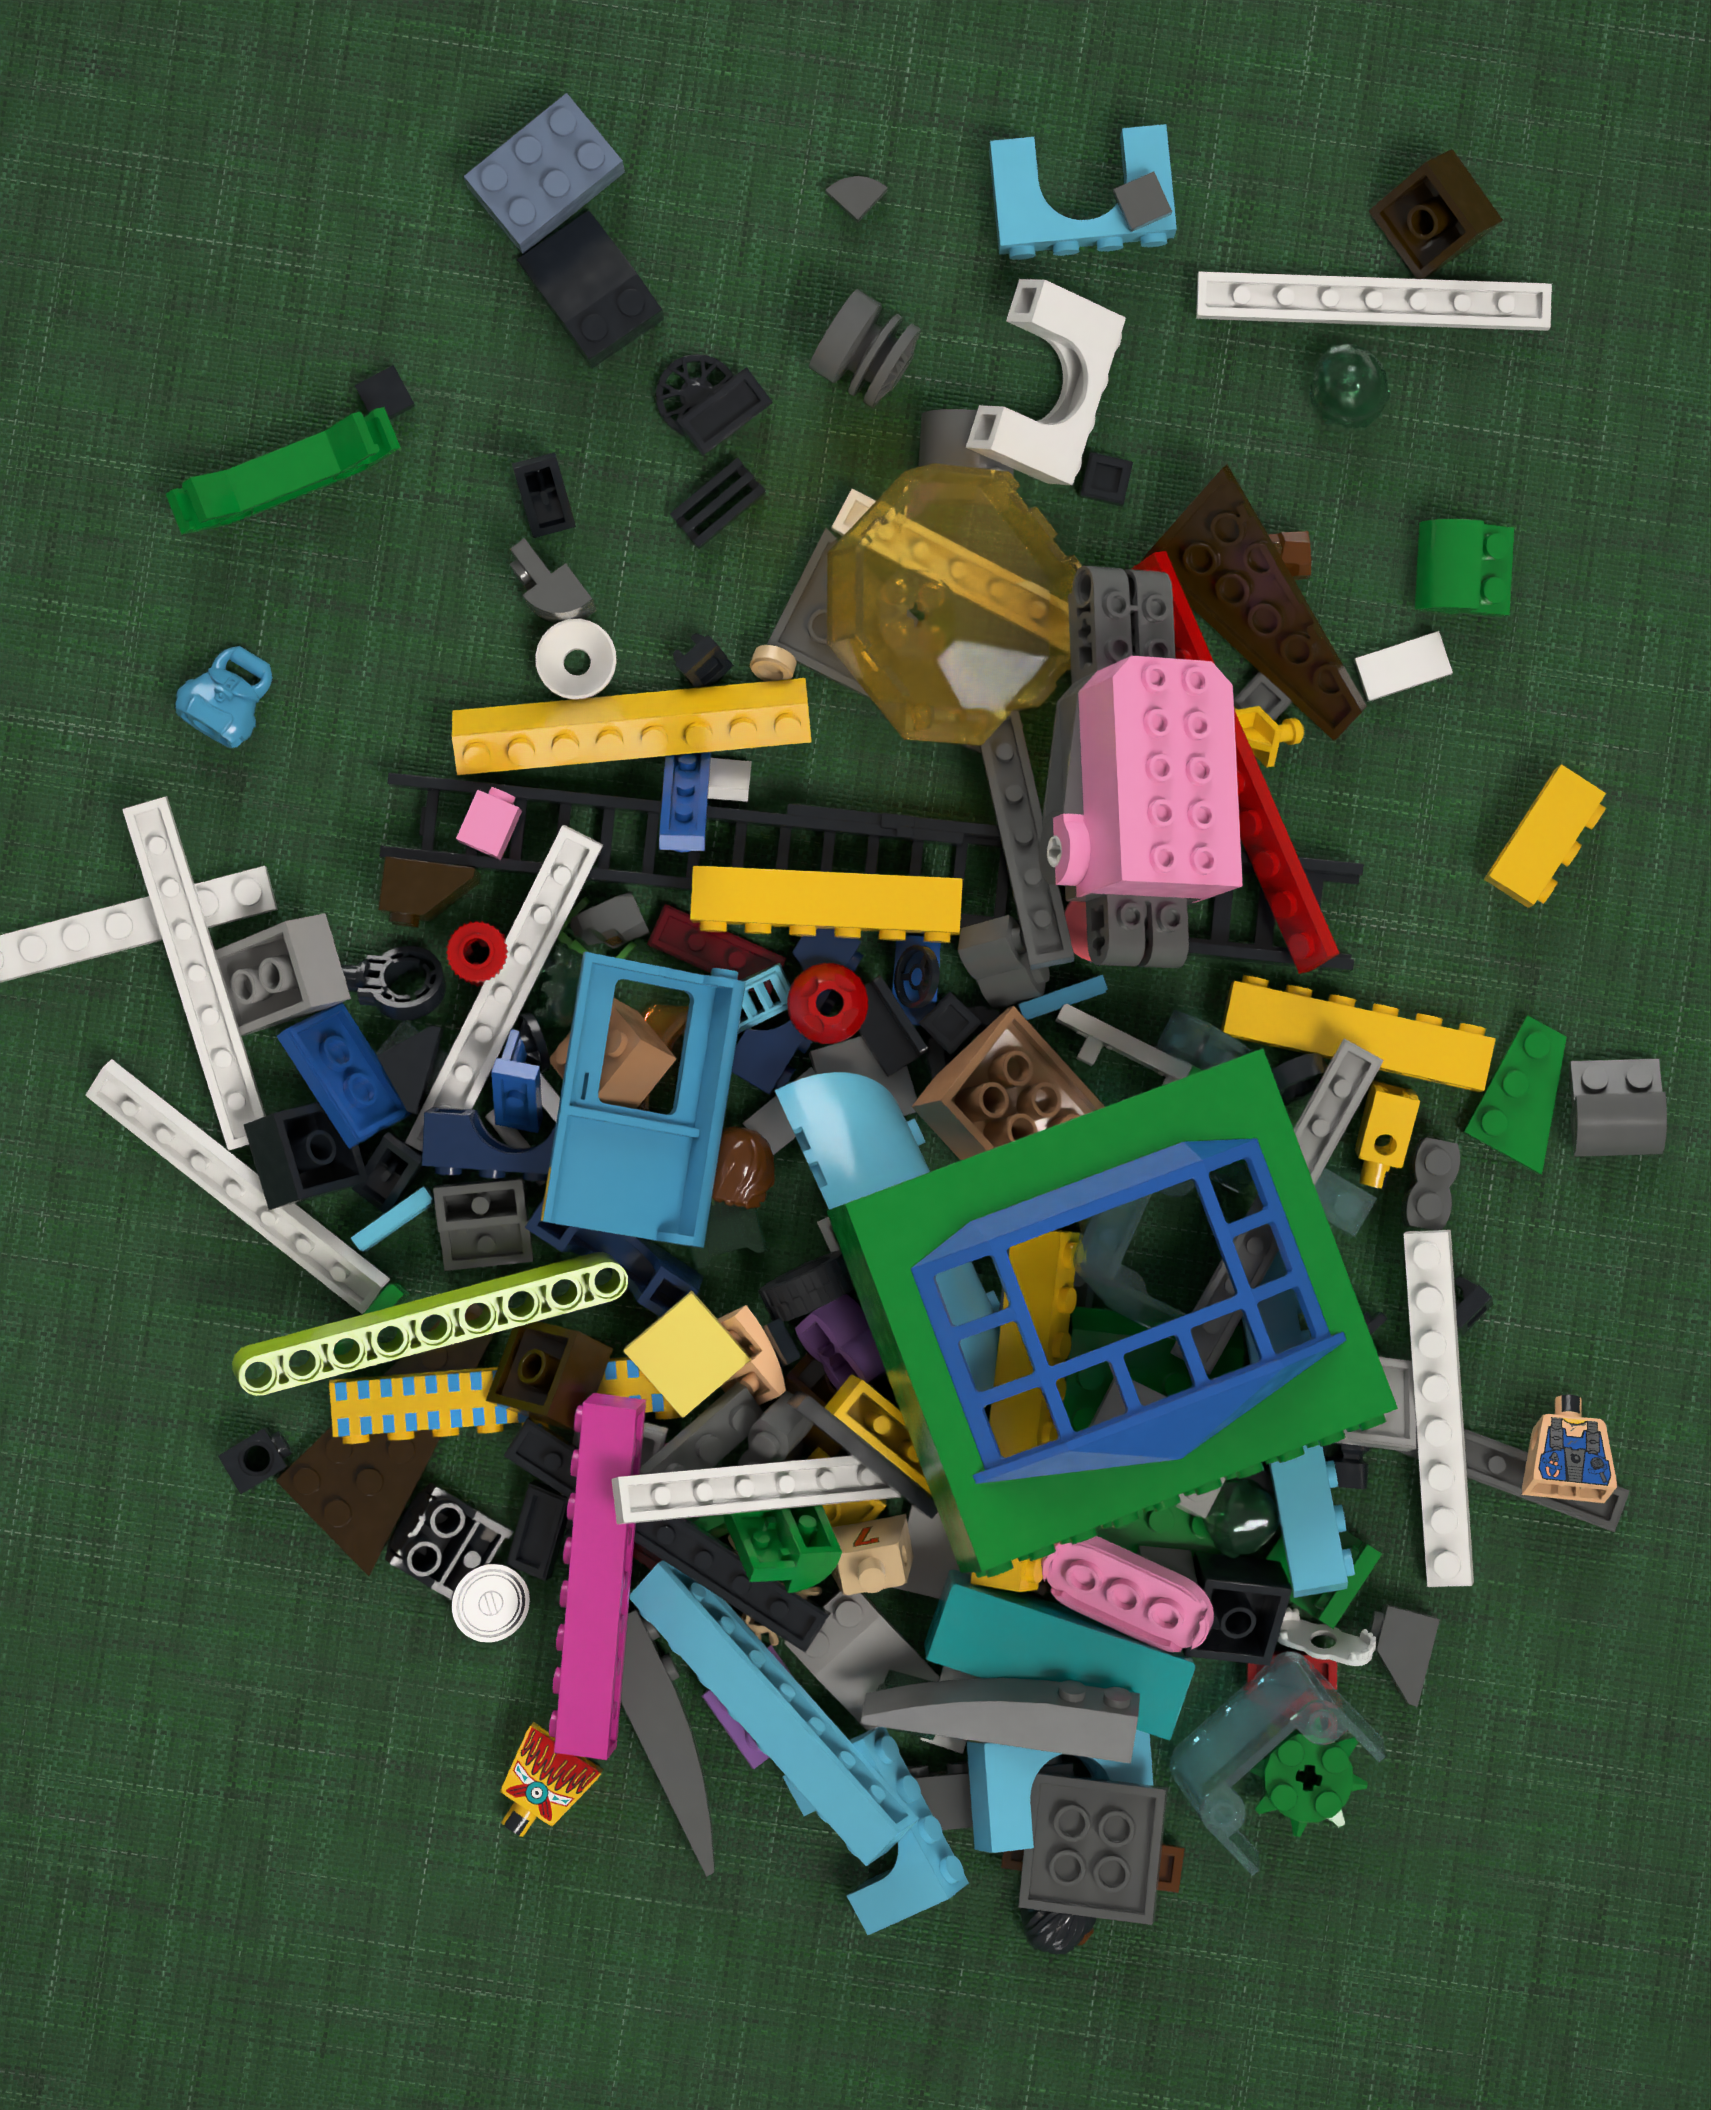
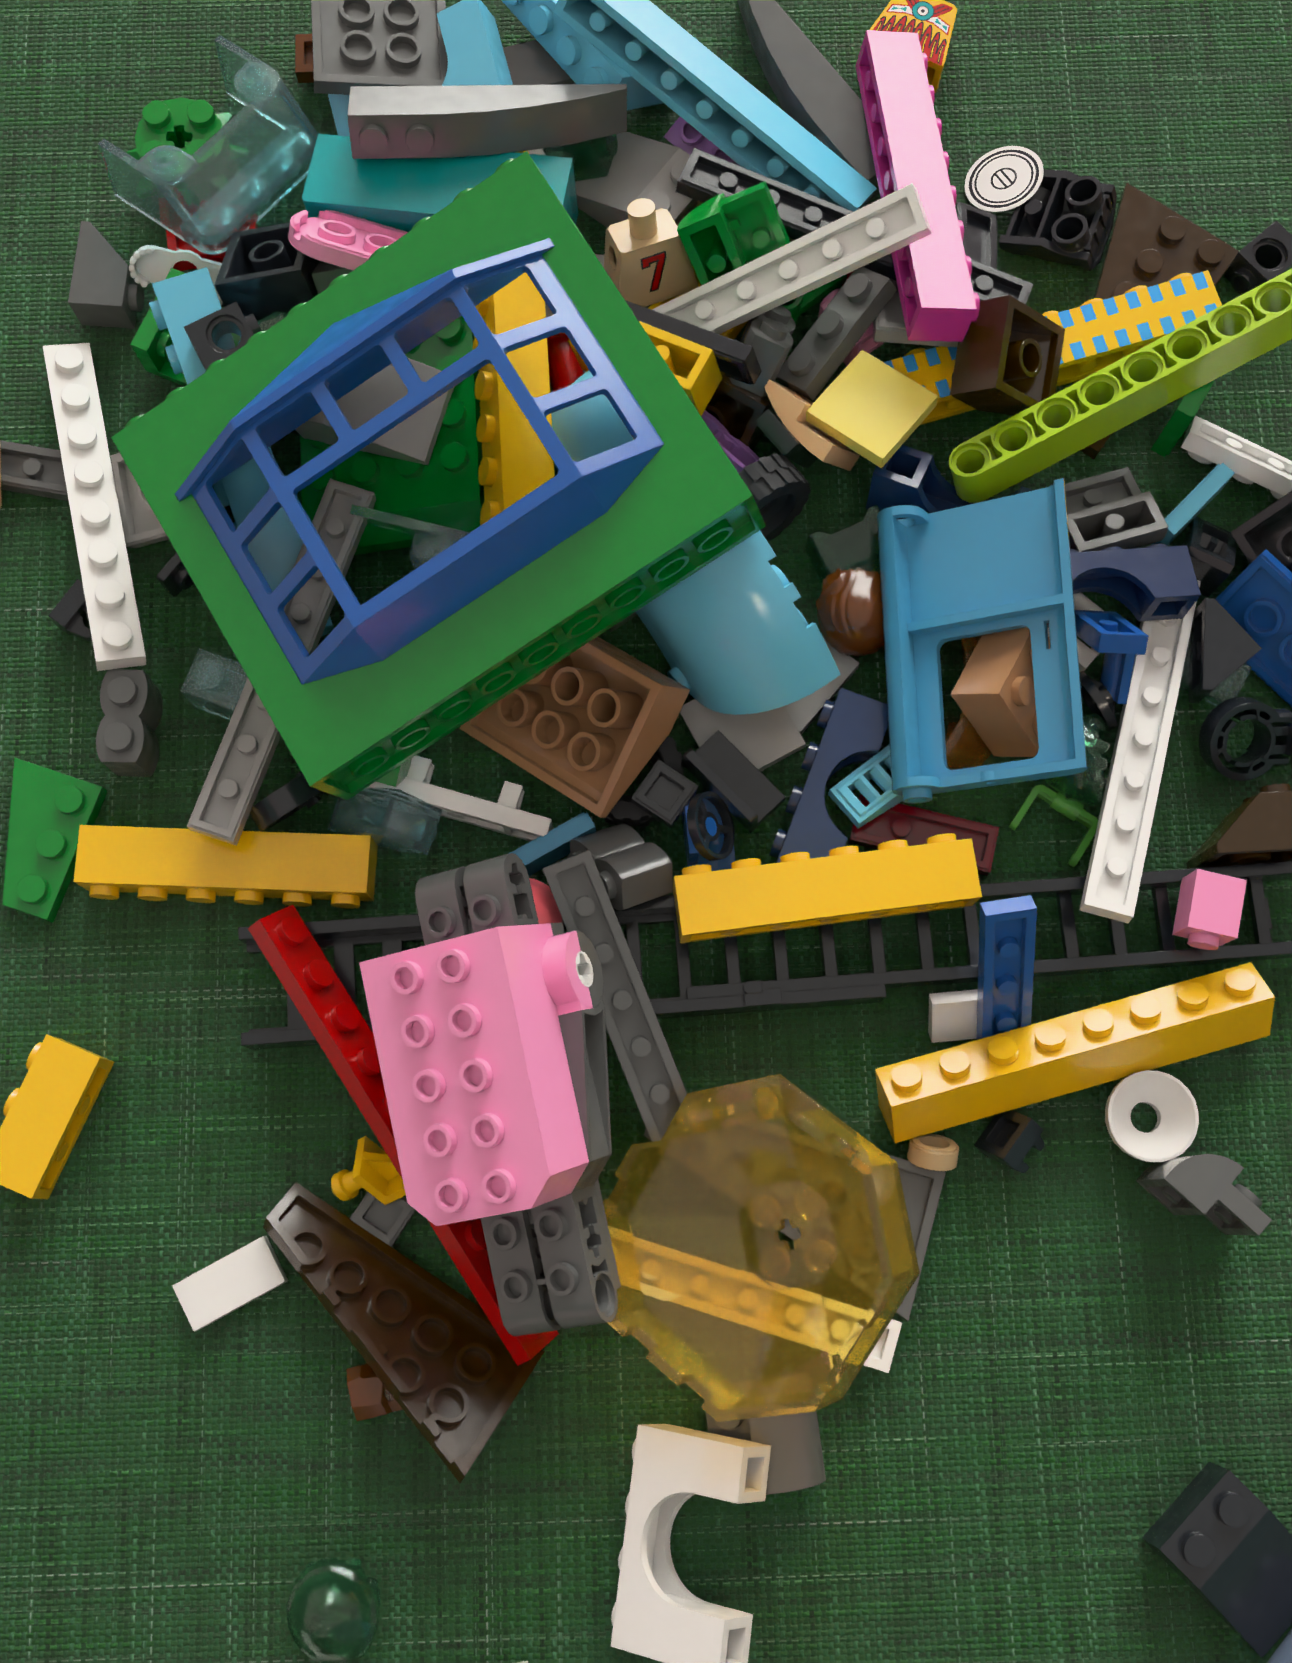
camera: 170 degrees right, 10 degrees down
(461, 949) = (1185, 774): red hose -> none
(544, 495) = (1233, 1301): black slope -> none
(611, 922) = (1041, 842): dark grey rock -> none
(693, 389) = (1084, 1452): black wheel -> none
(724, 411) = (1052, 1438): black tile -> none
(746, 479) = (1047, 1342): black tile -> none
(803, 997) = (799, 812): red piece -> none
(865, 348) = (922, 1550): dark grey wheel -> none
(1106, 479) = (599, 1441): black tile -> none
(1295, 1488) = (208, 330): none -> black brick
(1389, 1112) = (178, 766): yellow torso -> none
(1464, 567) = (173, 1413): green brick -> none

